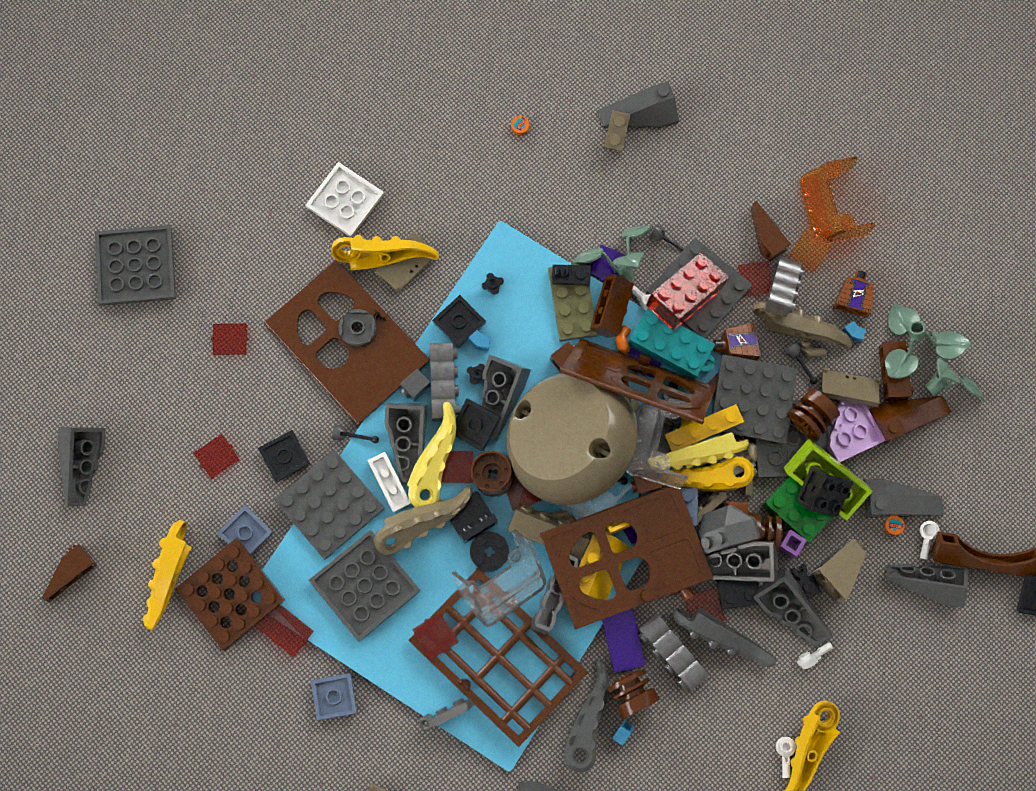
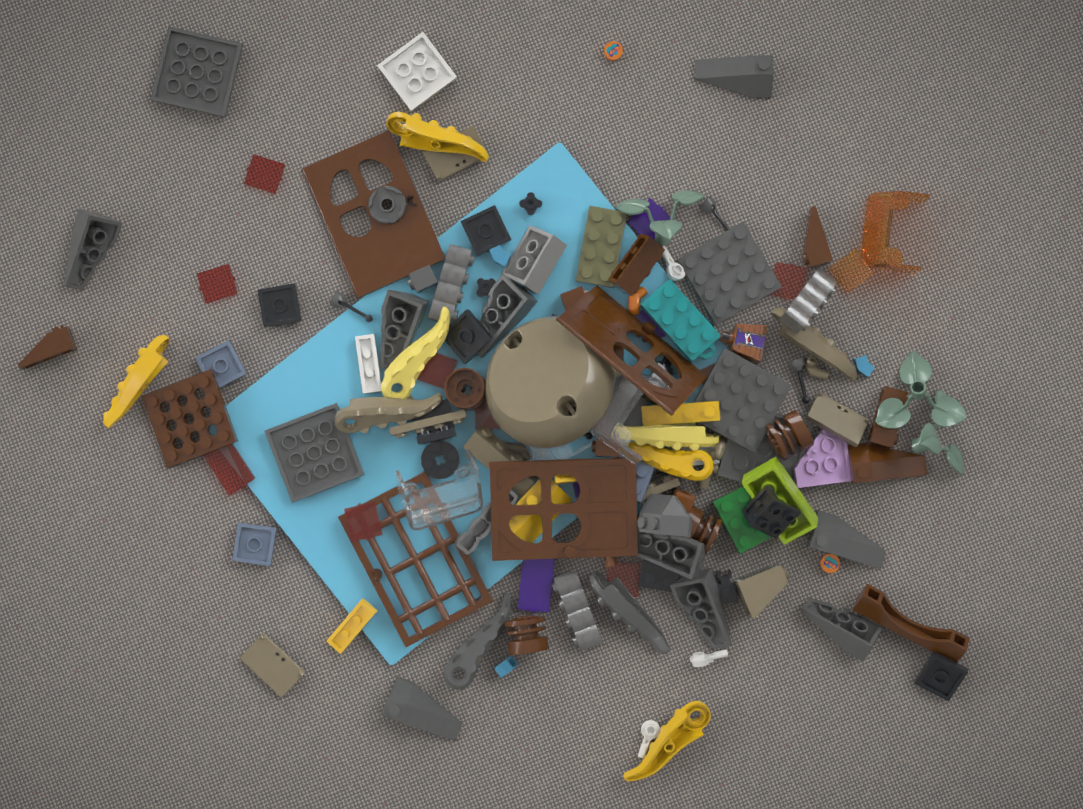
camera: 25 degrees right, 10 degrees up
(329, 504) = (306, 365): dark grey plate -> none
(445, 714) = (348, 595): dark grey hinge -> none
(457, 744) = (352, 626): none -> yellow plate
(474, 515) = (421, 425): none -> dark tan plate
(514, 332) = (534, 259): none -> light grey slope
(571, 275) = (608, 221): black plate -> none
(617, 131) = (704, 89): dark tan brick -> none
(687, 291) = (712, 275): clear red brick -> none
(791, 544) = (724, 548): medium lavender brick -> none
(855, 296) = (878, 331): torso -> none
(928, 531) = (859, 581): white plate -> none

